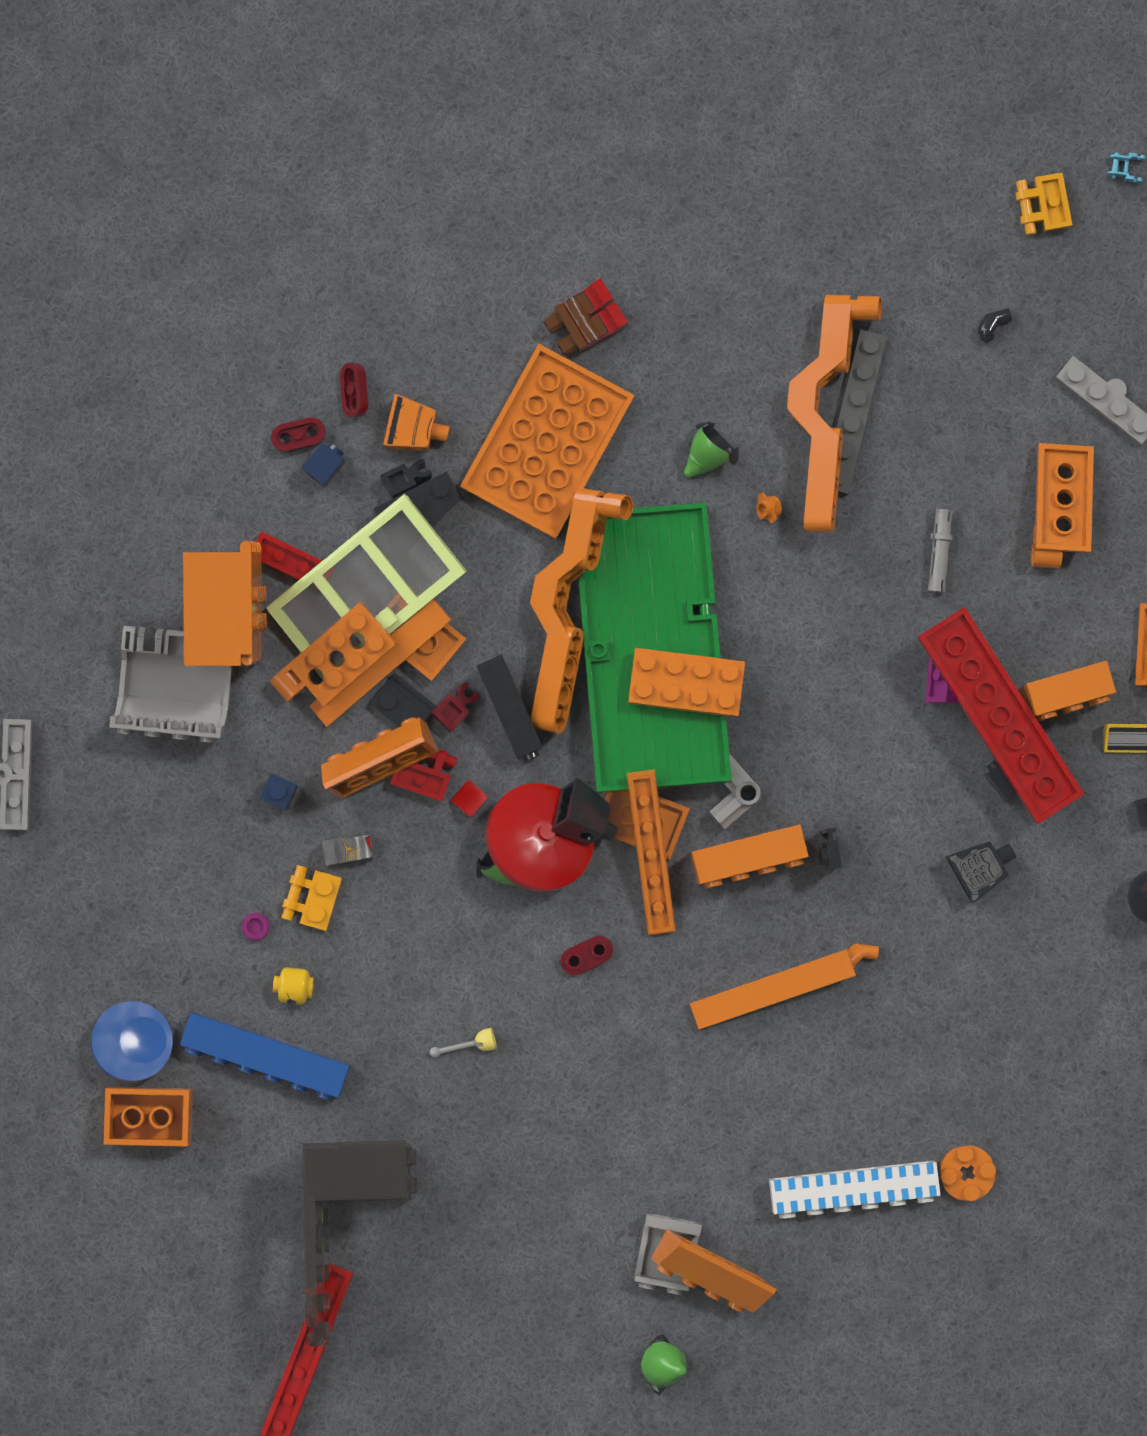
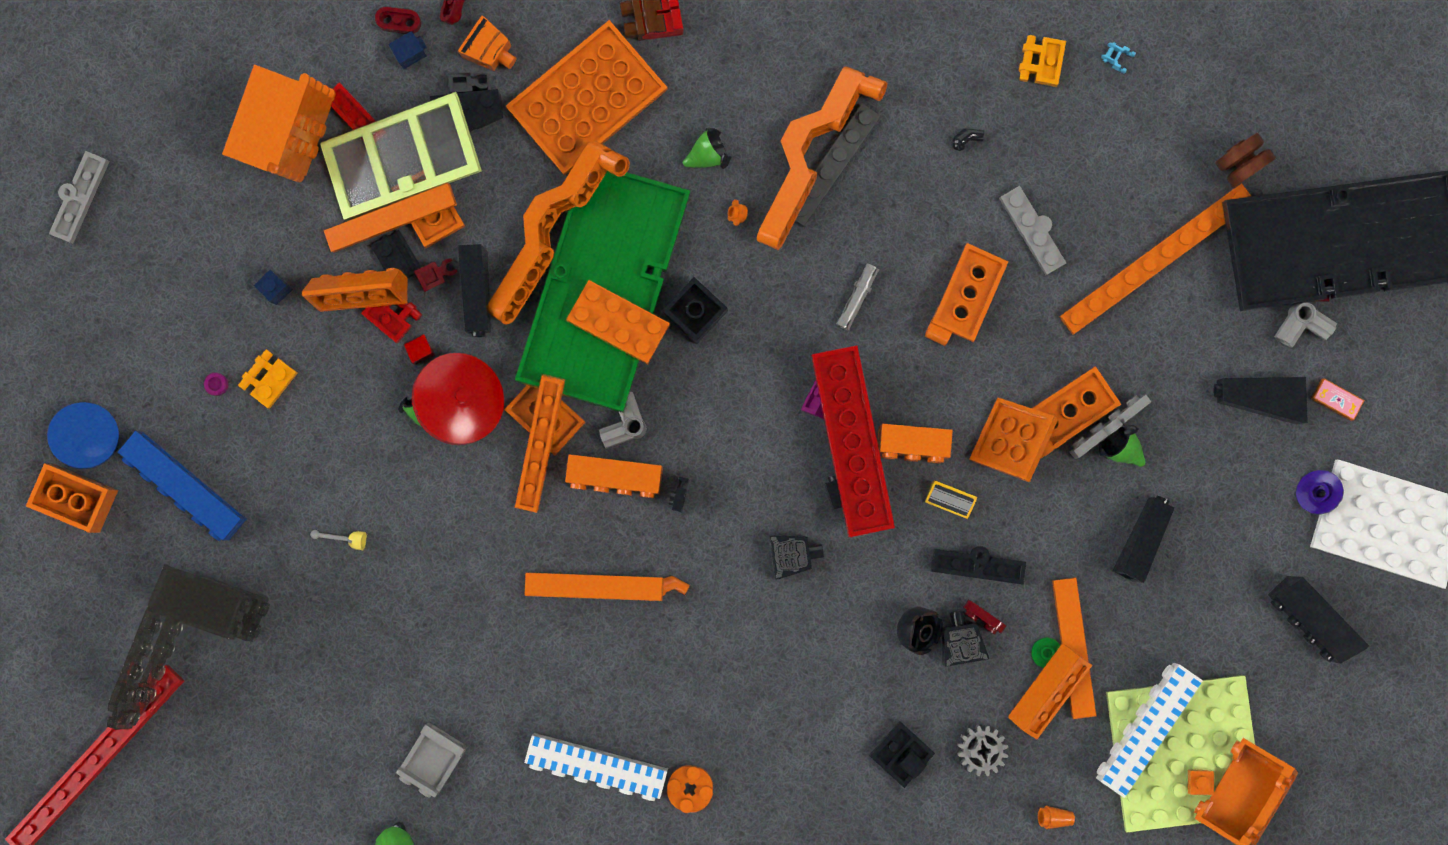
camera: 25 degrees right, 0 degrees up
(164, 694) = (217, 181): light grey hinge -> none
(293, 986) = (225, 441): yellow head -> none
(296, 674) = (319, 203): orange hinge -> none
(348, 849) = (308, 352): flat silver leg -> none
(582, 814) = (497, 394): black torso -> none
(586, 955) = (460, 504): dark red plate -> none
(711, 1272) = (457, 788): orange slope -> none
(766, 636) = (695, 310): none -> black brick

